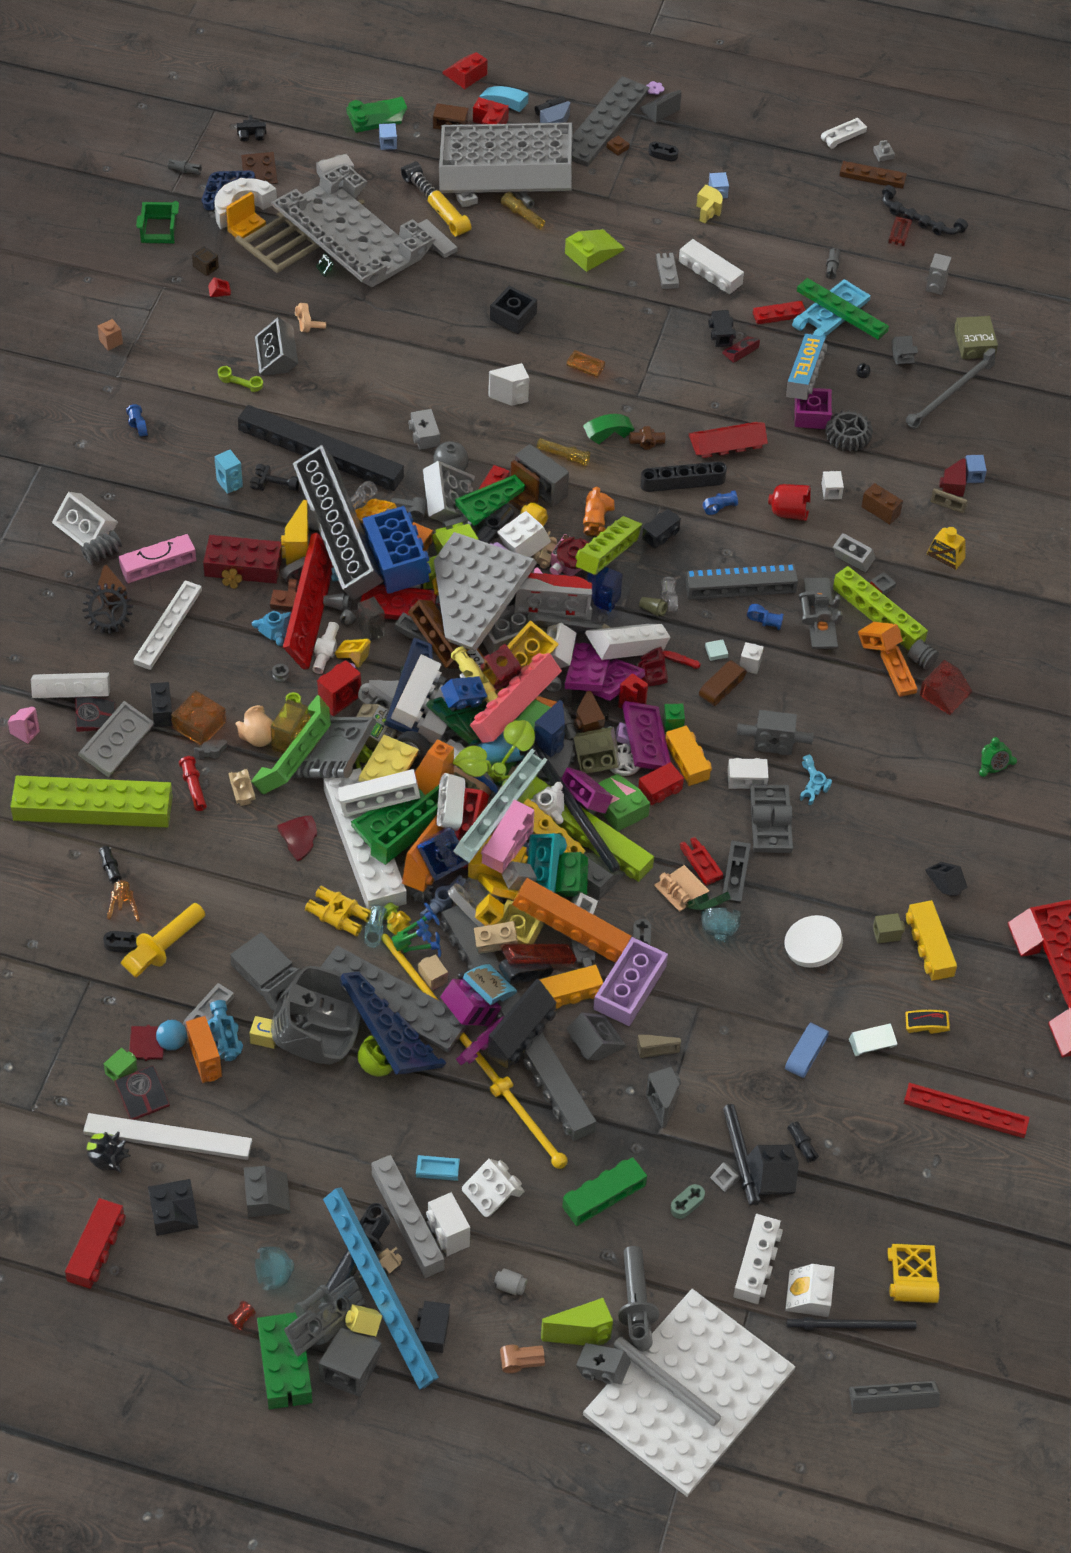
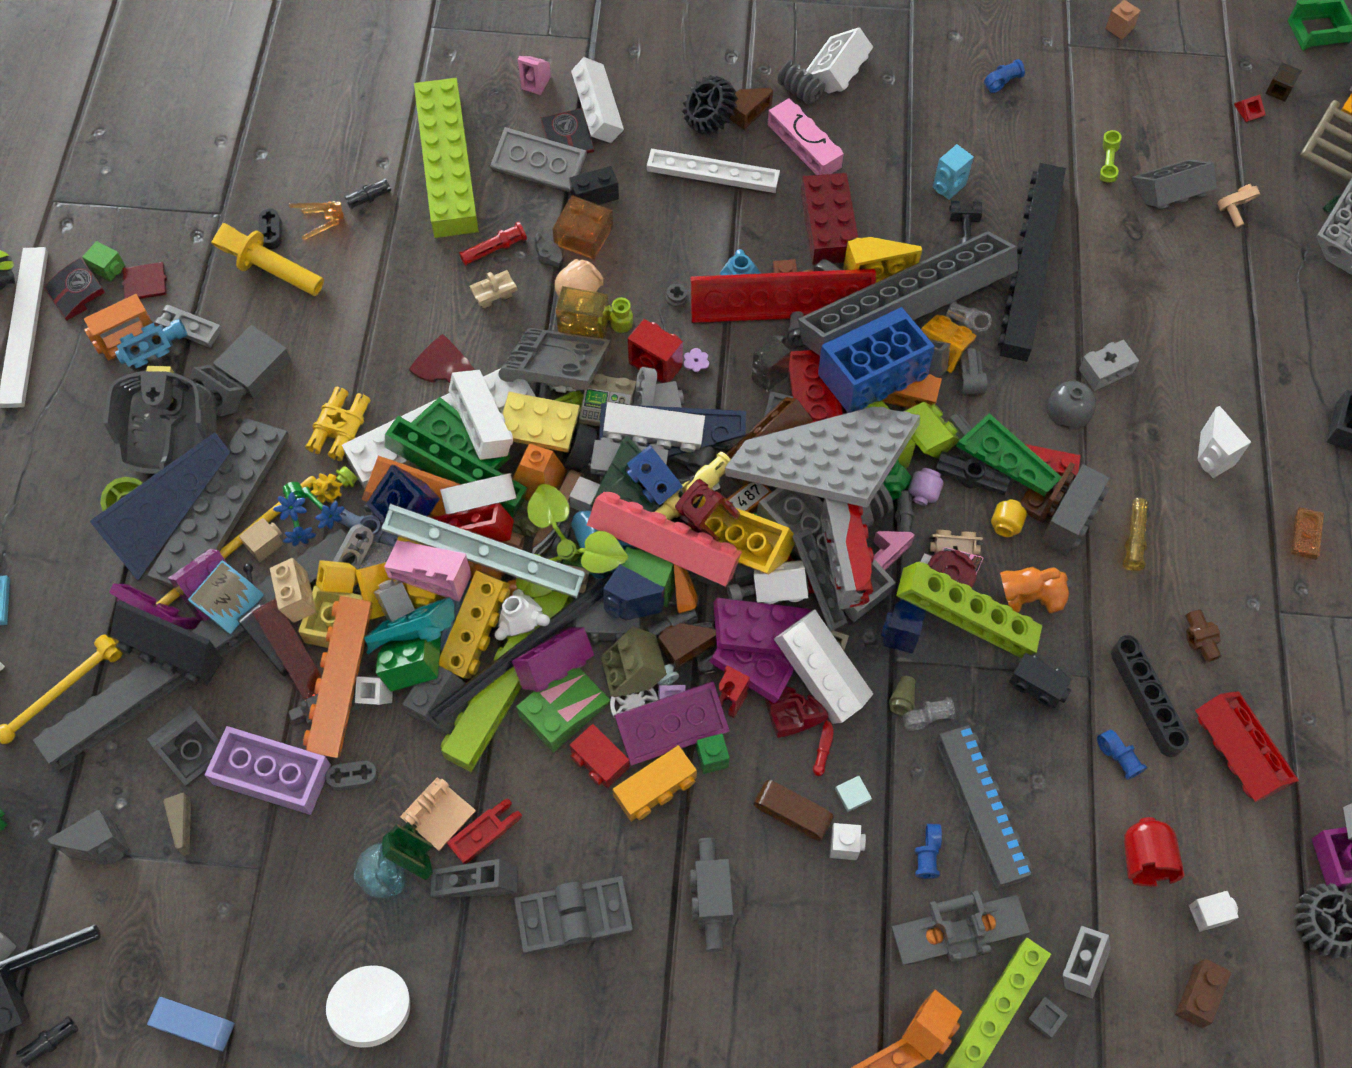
camera: 80 degrees right, 10 degrees up
(171, 1035) = (153, 297): dark azure hair -> none
(231, 578) = (799, 214): pearl gold plant -> none
(299, 749) = (583, 336): bright green slope -> none
(325, 647) = (722, 330): white pin -> none
(355, 649) = (721, 360): yellow slope -> none
(375, 926) = (318, 463): clear light blue connector -> none
(442, 487) = (1015, 404): light grey wedge -> none
(524, 535) = (959, 508): white brick -> none
(574, 985) = (256, 700): light orange brick -> none
(603, 426) = (1194, 572): green brick -> none
(746, 772) = (642, 869): white brick -> none
(817, 780) = (653, 971): medium azure piece -> none

